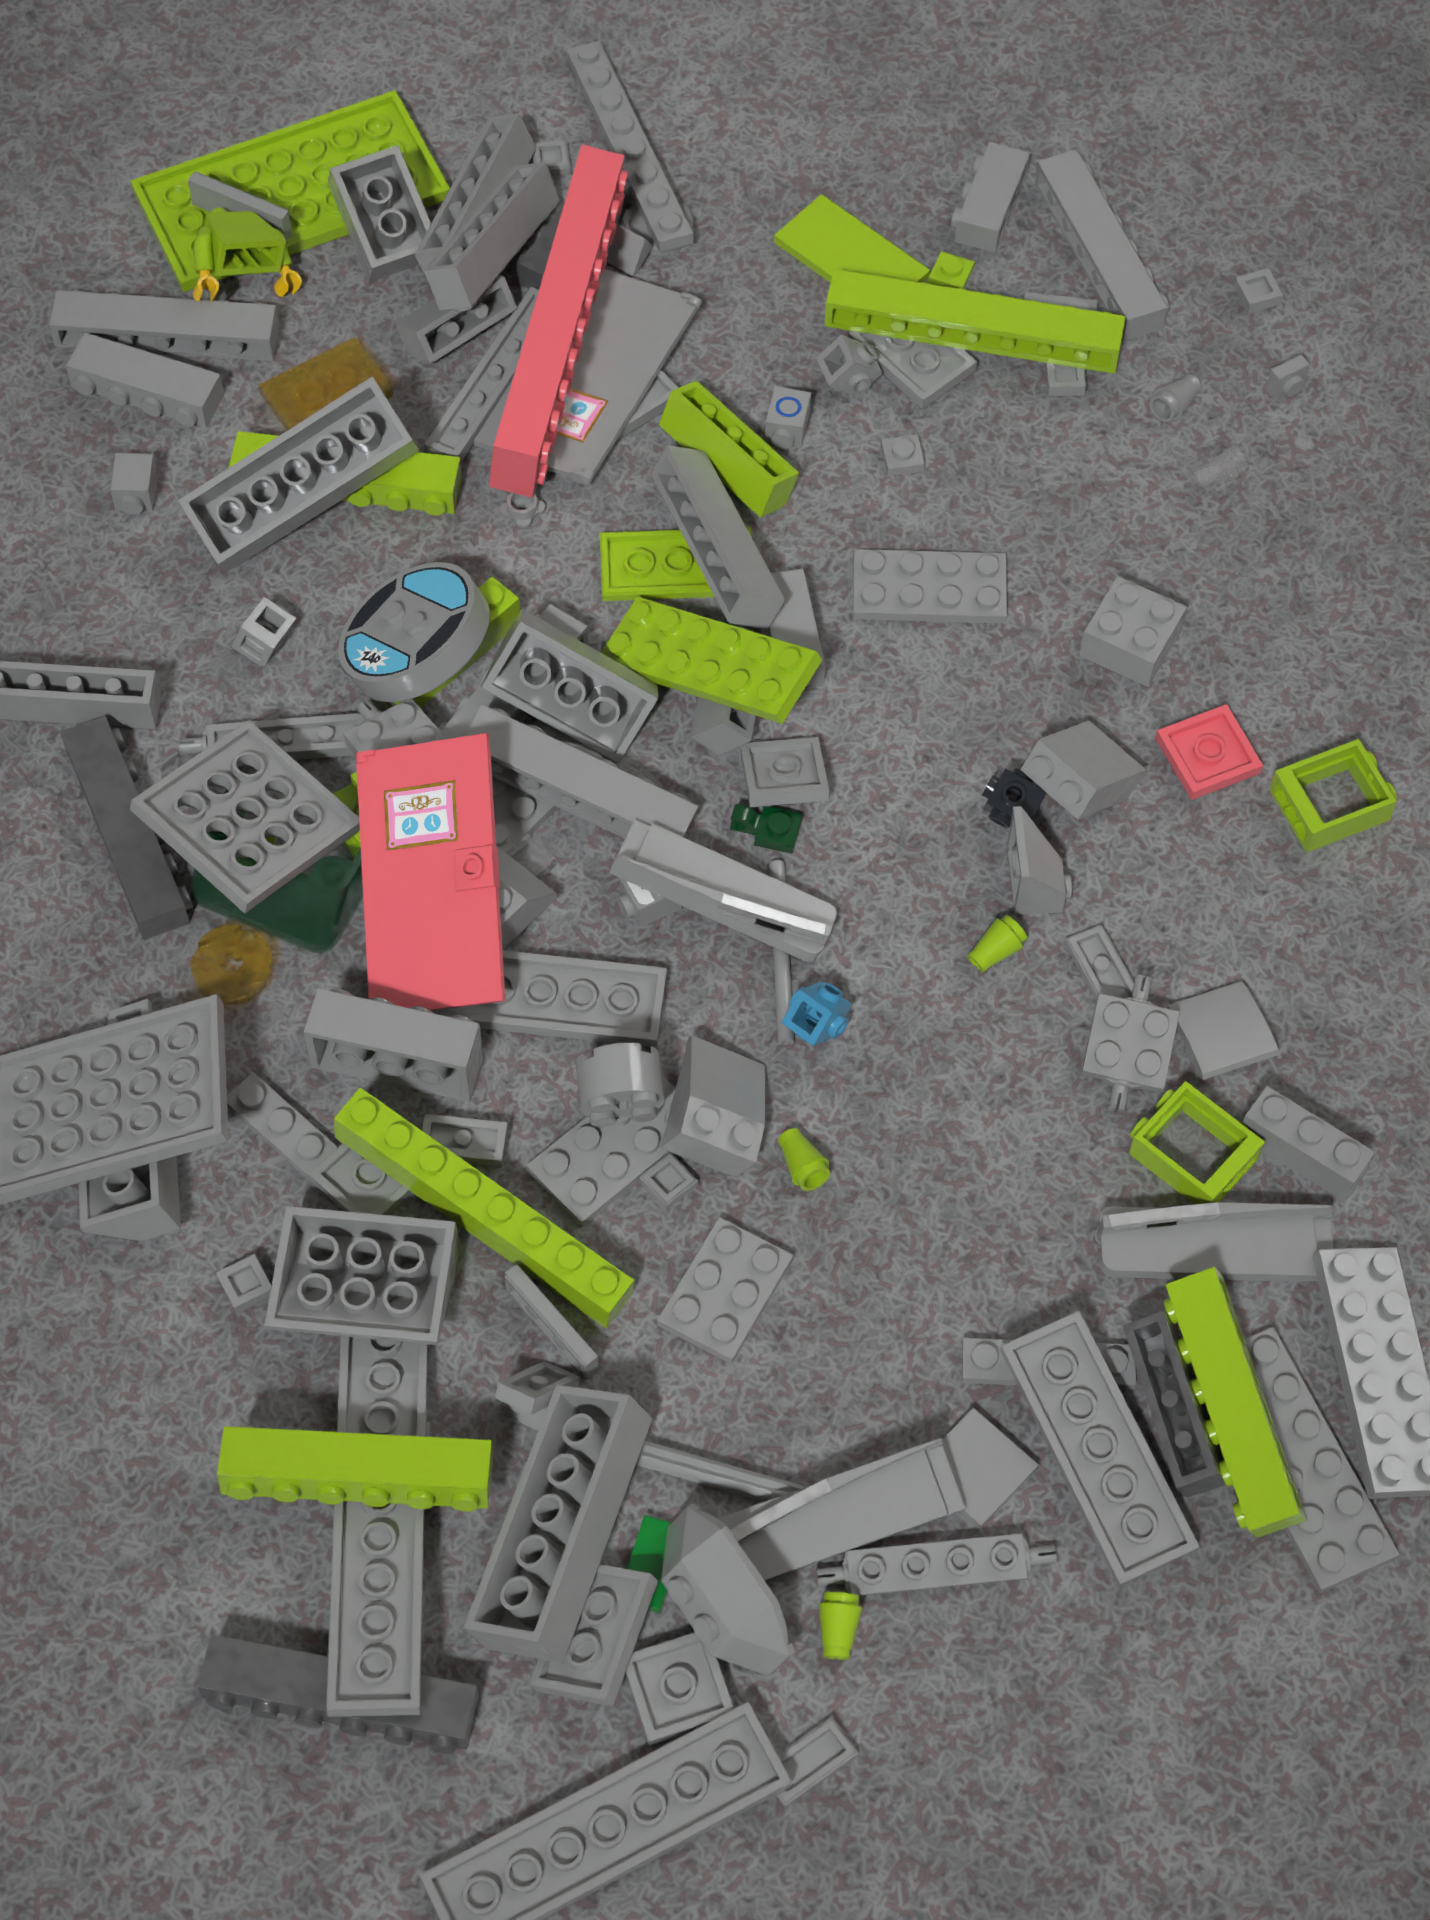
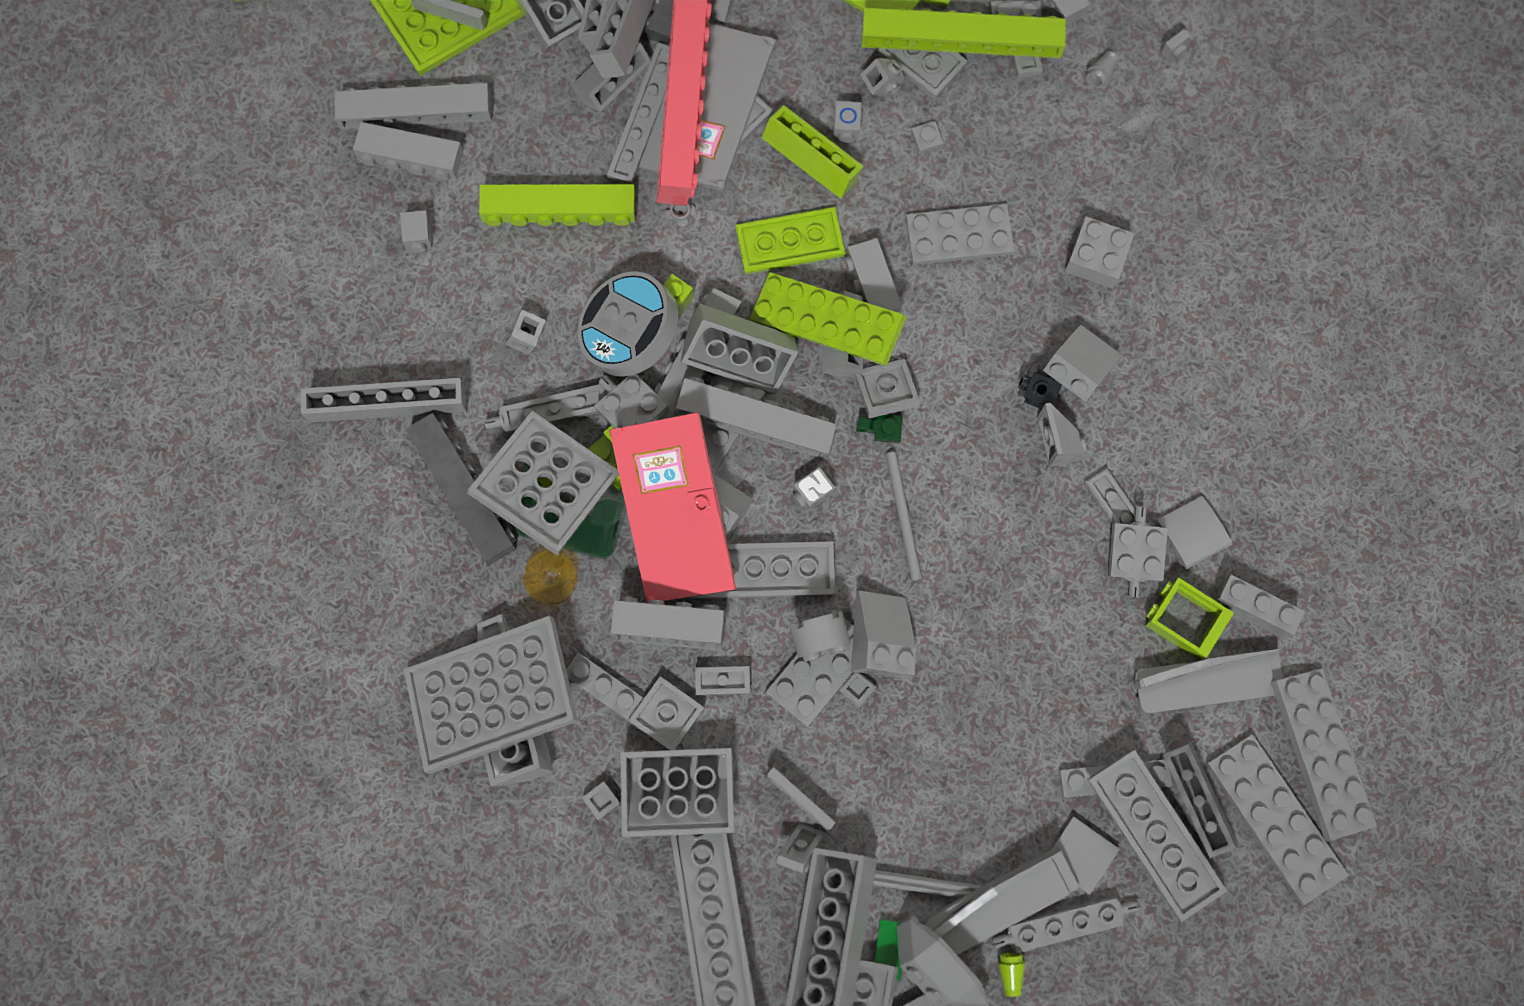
camera: 10 degrees left, 15 degrees up
(240, 245) = (454, 42): lime torso -> none
(298, 475) = (529, 217): light grey brick -> none
(320, 381) = (532, 140): clear yellow plate -> none
(355, 1468) = (698, 927): lime brick -> none
(483, 1208) = (745, 731): lime brick -> none
(717, 538) = (817, 224): light grey brick -> none
(724, 890) = (862, 483): light grey piece -> none
(725, 1290) = (905, 758): light grey plate -> none
(805, 1163) = (941, 662): lime cone -> none
(817, 1013) = (936, 561): dark azure brick -> none
(999, 942) = (1042, 492): lime cone -> none
(1209, 752) = (1159, 333): coral plate -> none
(1234, 1402) = (1238, 796): lime brick -> none
(1301, 814) = (1224, 369): lime window -> none

